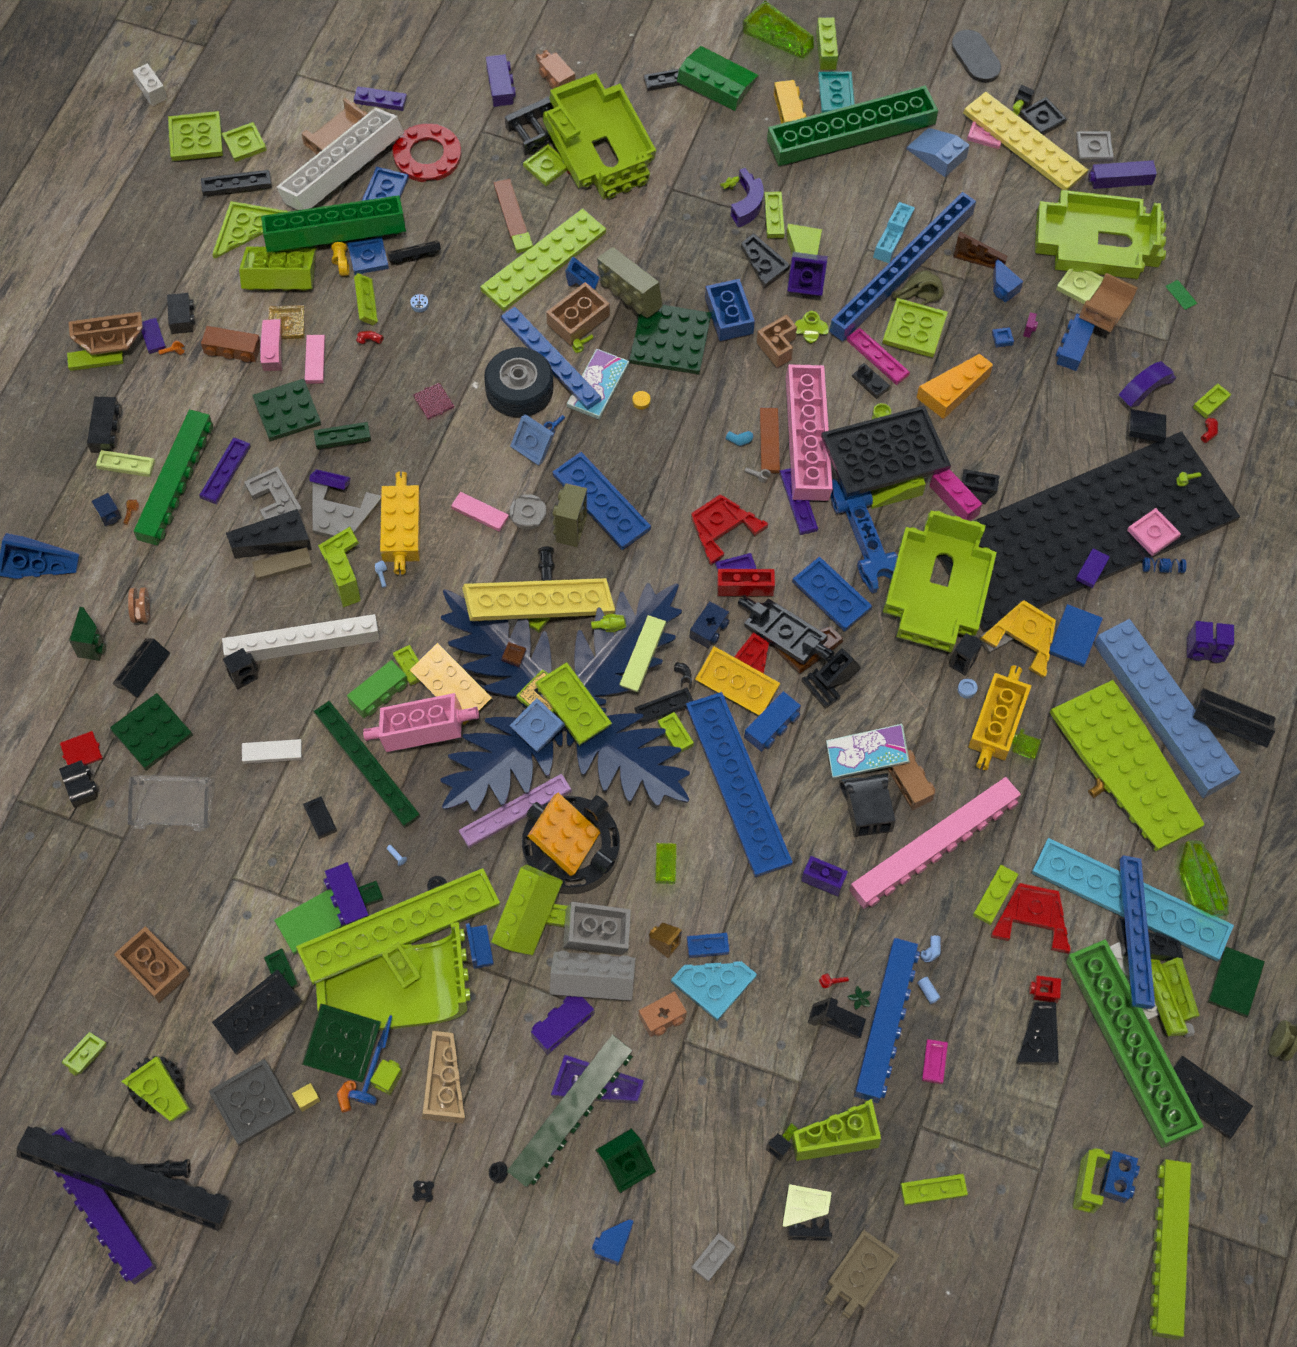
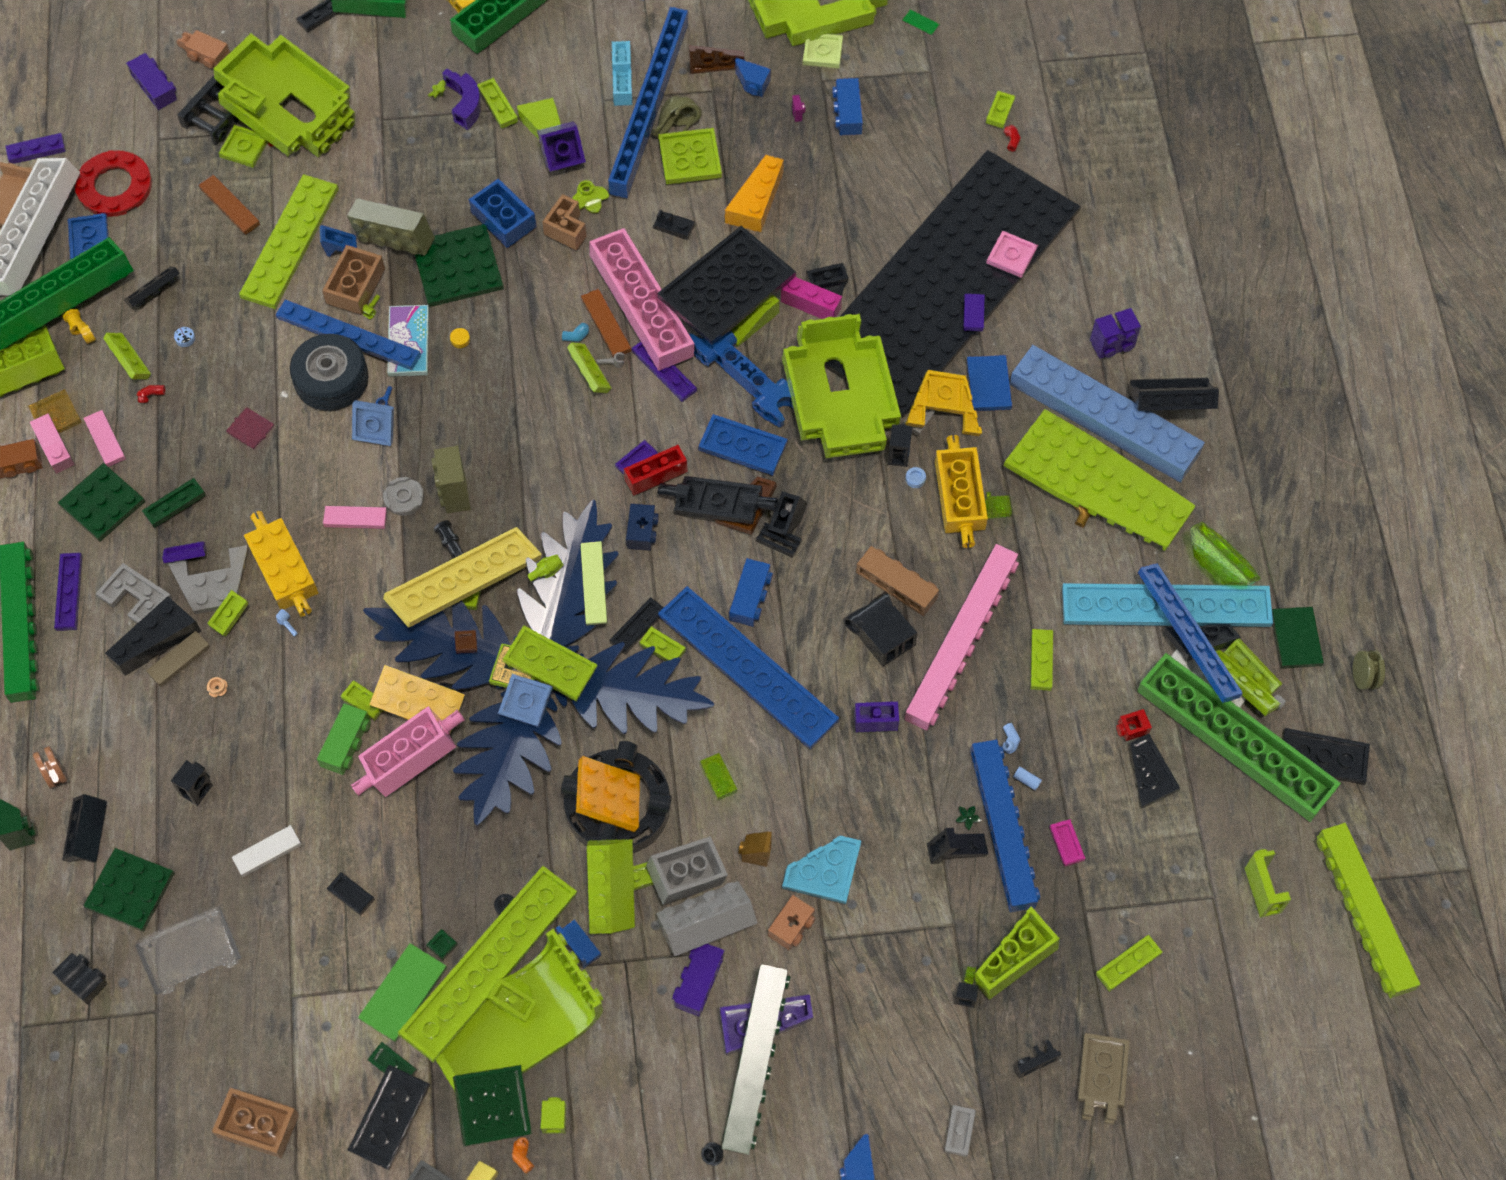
camera: 25 degrees left, 0 degrees up
(81, 748) = (64, 941): red piece -> none
(300, 596) = (213, 683): none -> light nougat plate
(305, 638) = (242, 722): white brick -> none
(343, 578) = (252, 644): lime brick -> none
(345, 894) = (419, 957): dark purple brick -> none
(363, 1096) = (533, 1086): blue piece -> none
(367, 764) = (371, 818): dark green plate -> none
(368, 255) = (105, 311): blue tile -> none
(401, 860) = (455, 896): light blue piece -> none
(442, 1086) = (615, 1099): tan wedge -> none
(512, 811) = (543, 796): lavender tile -> none
(522, 242) = (258, 233): lime tile -> none
(604, 501) = (478, 453): blue plate -> none
(625, 1160) = (829, 1080): dark green slope -> none
(683, 669) = (639, 581): black arm -> none
(708, 945) = (799, 835): blue plate -> none
(719, 518) = (596, 420): red wing -> none
(735, 471) = (589, 368): none -> lime plate
(737, 681) = (697, 568): yellow plate -> none
(754, 652) = (698, 539): red wing -> none
(764, 260) = (510, 151): black wing -> none
(805, 1204) = (1018, 1037): yellowish green wing -> none
(827, 982) = (929, 816): red hand -> none
(867, 751) = (856, 579): tile -> none
(878, 356) = (668, 198): dark pink tile -> none
(881, 410) = (699, 249): lime wheel -> none
(1002, 337) = (777, 130): blue tile -> none
(1035, 908) = (1087, 654): red wing -> none
(1108, 303) = (860, 56): medium nougat panel -> none
(1115, 1175) = (1283, 867): blue brick -> none
(1146, 382) = (933, 118): dark purple arch -> none
(1147, 425) = (954, 157): black tile -> none
(1165, 565) = (1037, 281): blue piece -> none
(1183, 478) = (1013, 191): lime hand -> none

